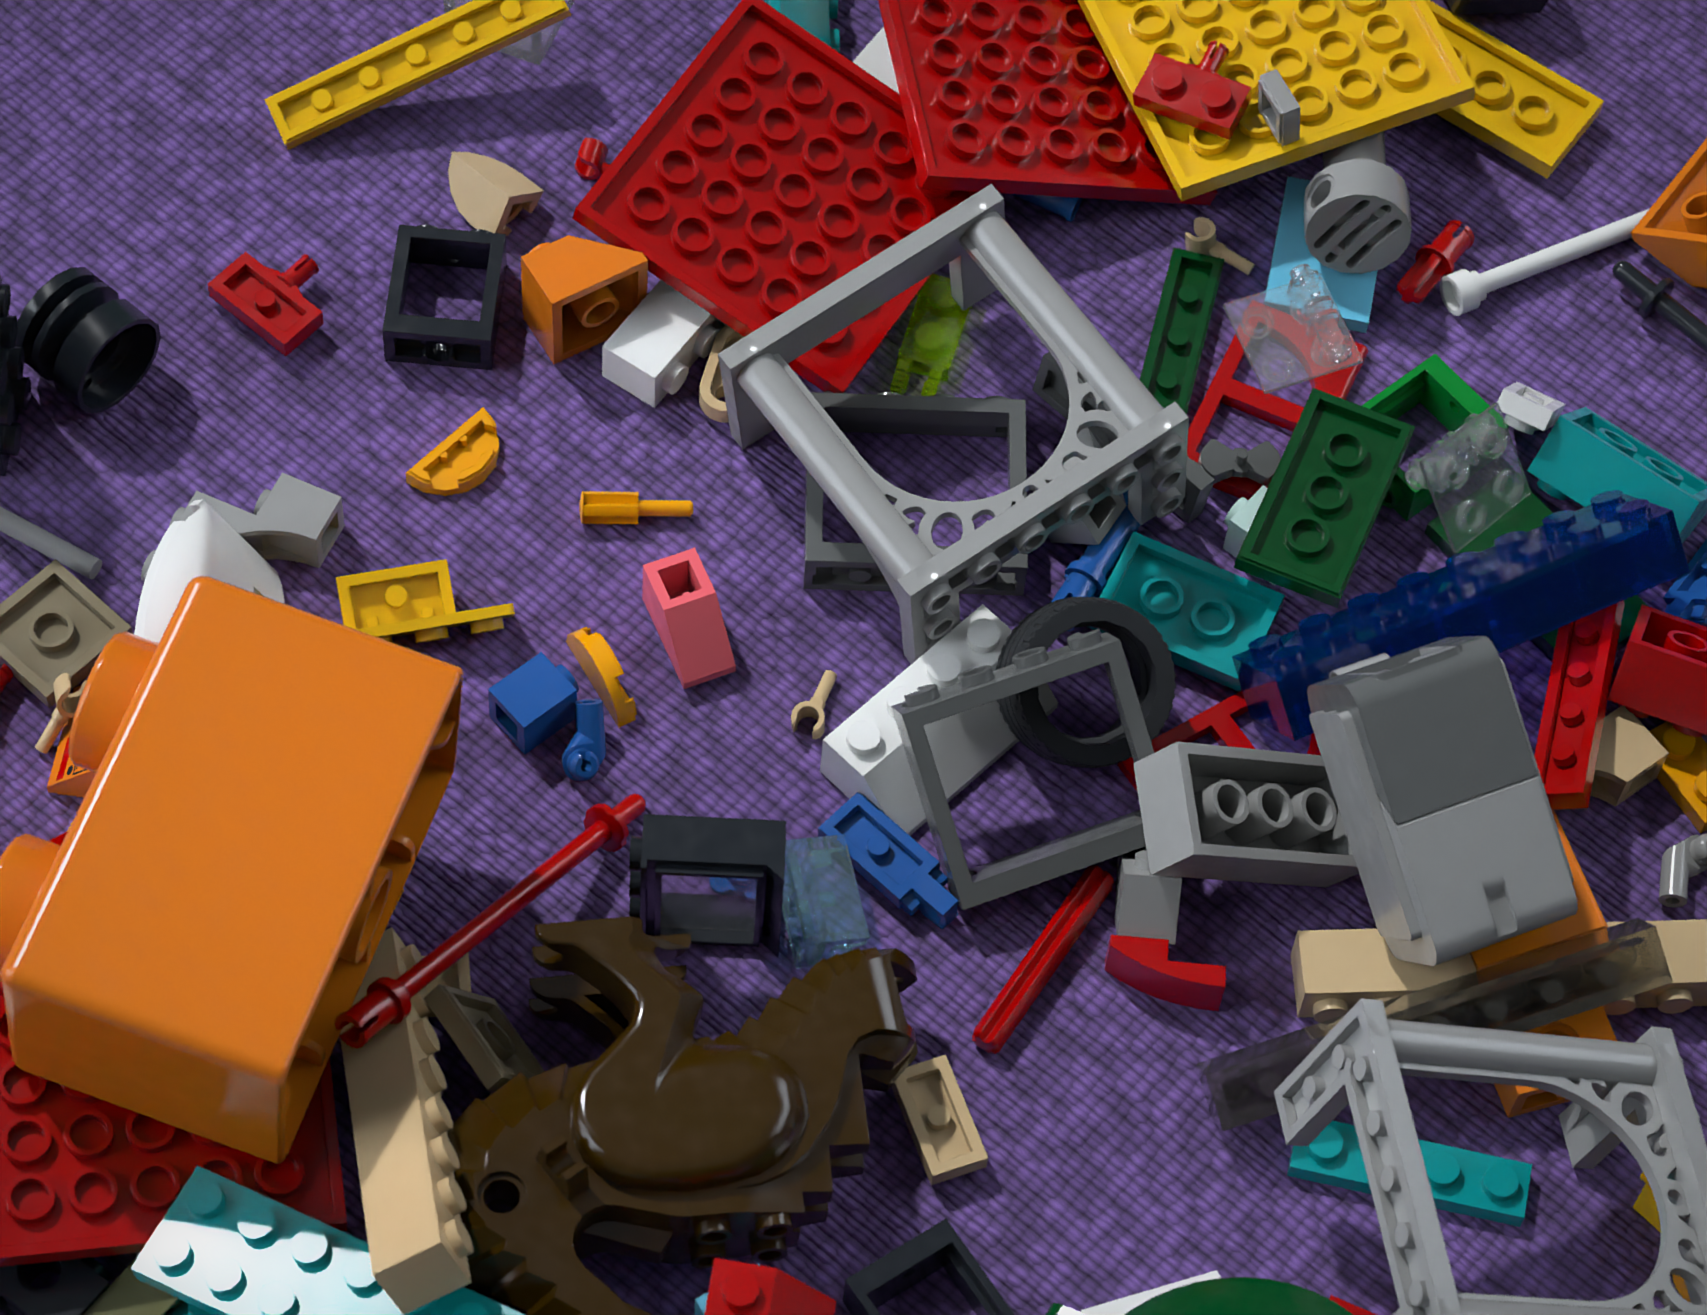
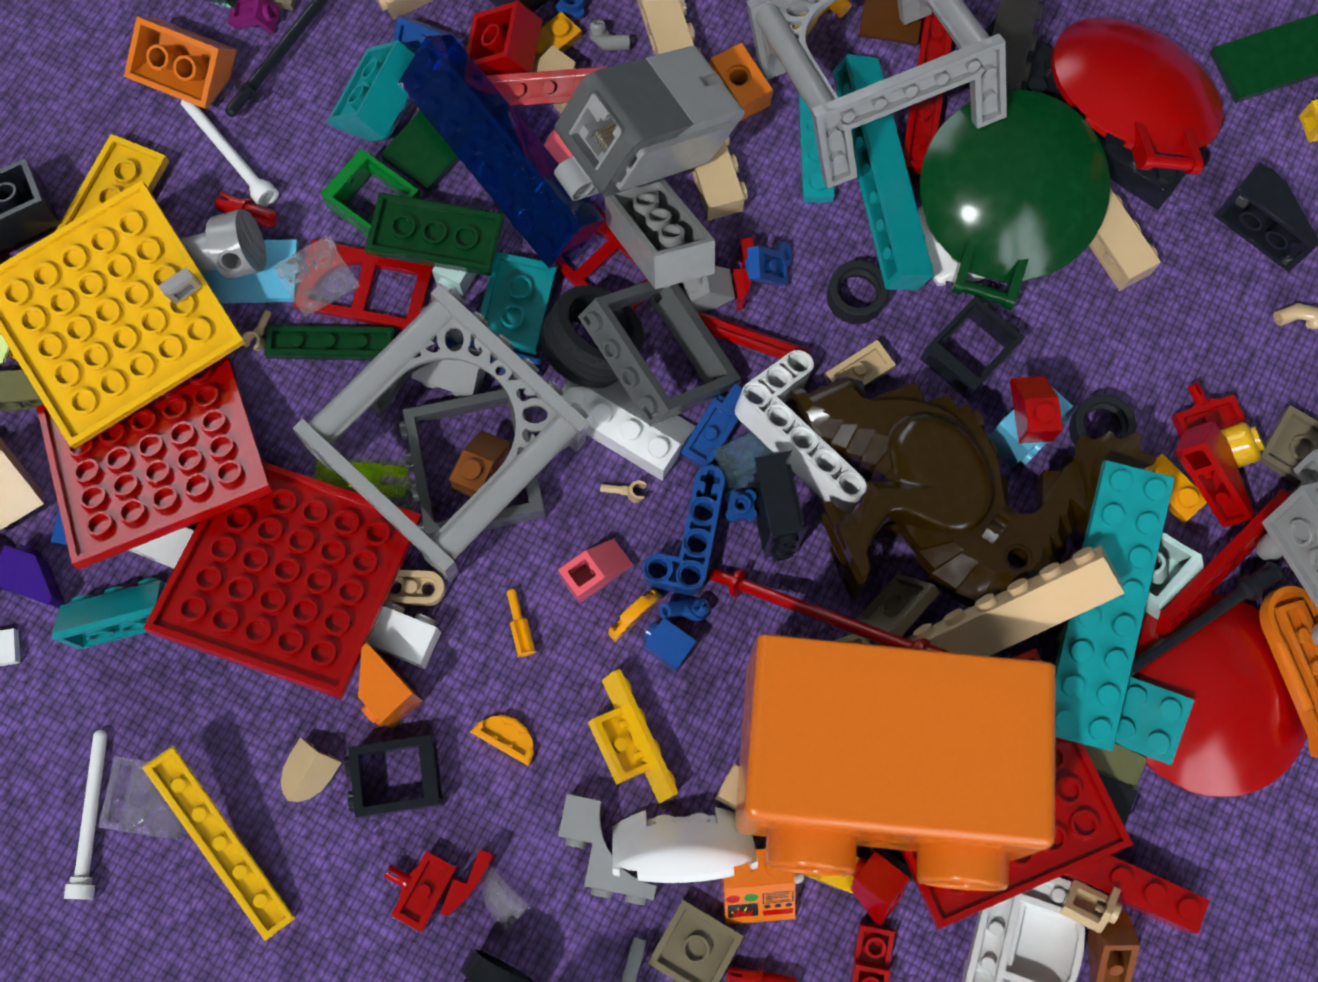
camera: 100 degrees left, 15 degrees up
(65, 708) = (744, 919): tan hand -> none
(219, 404) = (503, 900): none -> clear brick
(250, 351) = (462, 891): none -> red slope
(591, 159) = (269, 715): red hand -> none
(718, 777) = (693, 530): none -> blue beam
(832, 935) = (767, 416): none -> white beam
(904, 463) = (478, 462): none -> dark orange slope
(1095, 1112) = (852, 314): none -> black tyre
(1164, 1001) = (769, 265): none -> blue hinge
(1194, 92) = (171, 341): red plate -> none
(1254, 464) = (410, 281): dark grey piece -> none
(1298, 1244) = (885, 186): none -> teal brick
(1471, 476) = (399, 163): clear hinge -> none
(1499, 997) = (759, 139): clear smoke brick -> none
(1528, 408) = (344, 140): white plate -> none

